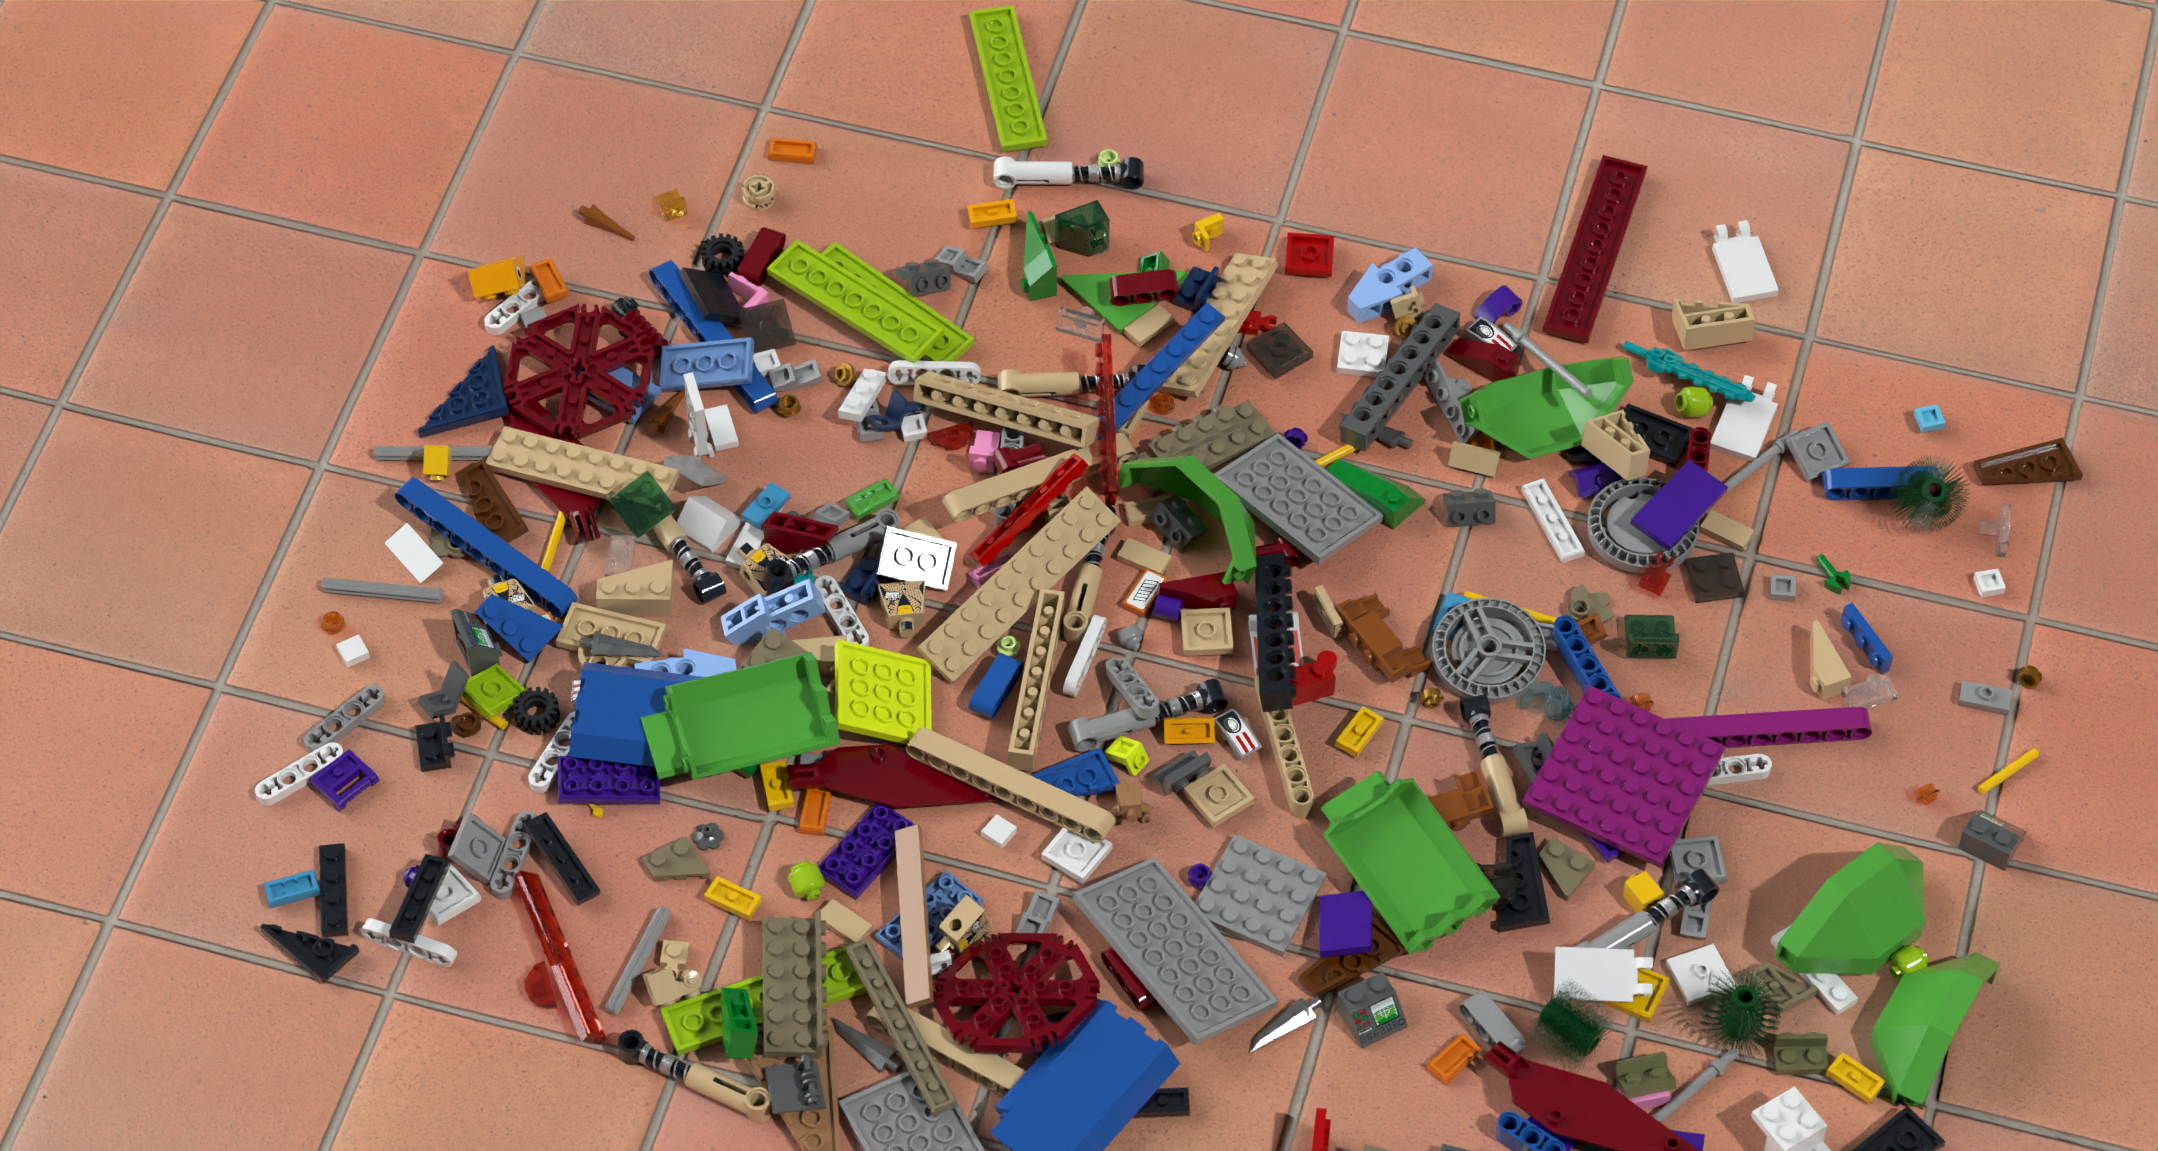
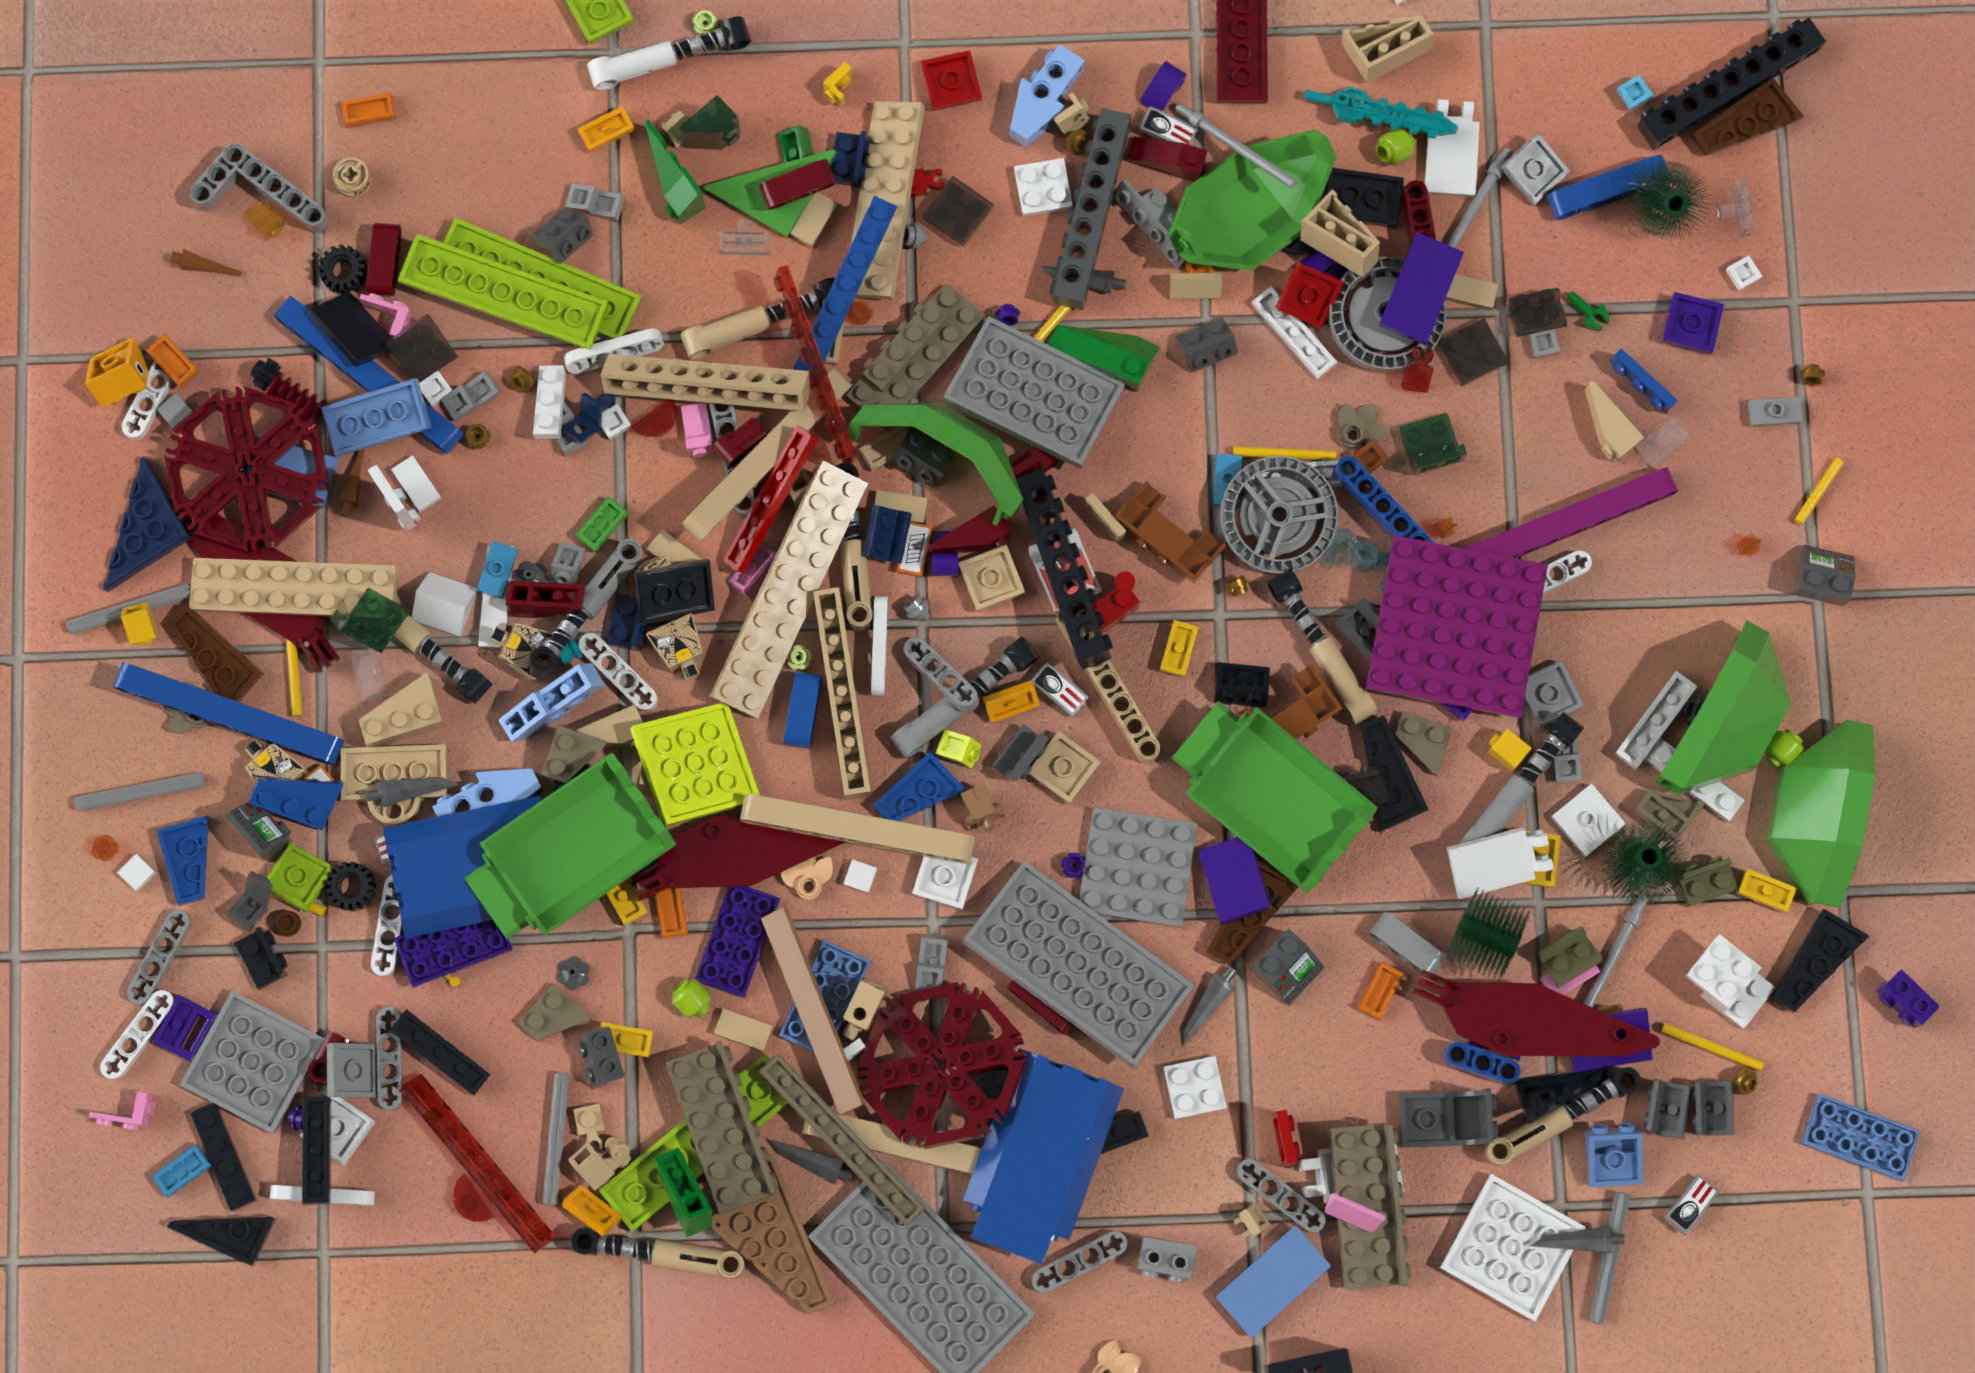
camera: 20 degrees left, 25 degrees up
(271, 836) = (143, 1108): none -> bright pink bracket
(390, 821) = (252, 1062): none -> light grey plate
(401, 649) = (186, 858): none -> blue wing
(413, 553) = (155, 736): white sticker -> none
(647, 1022) = (592, 1210): none -> light orange plate
(668, 158) = (262, 183): none -> light grey beam
(695, 470) = (410, 551): light grey tile -> none
(705, 901) = (600, 1057): none -> dark grey bracket
(795, 1086) = (762, 1240): dark grey hinge -> none
(951, 815) = (809, 871): none -> light nougat plate
(1123, 568) = (886, 534): none -> dark blue bracket
(1248, 1088) = (1194, 1087): none -> white plate
(1403, 767) = (1242, 684): none -> black bracket
(1575, 487) = (1309, 294): none -> red plate
(1783, 558) = (1537, 312): none -> clear smoke bracket
(1783, 913) = (1655, 720): none -> white plate
(1928, 606) = (1692, 323): none -> dark purple plate
(2007, 434) = (1802, 33): none -> black brick

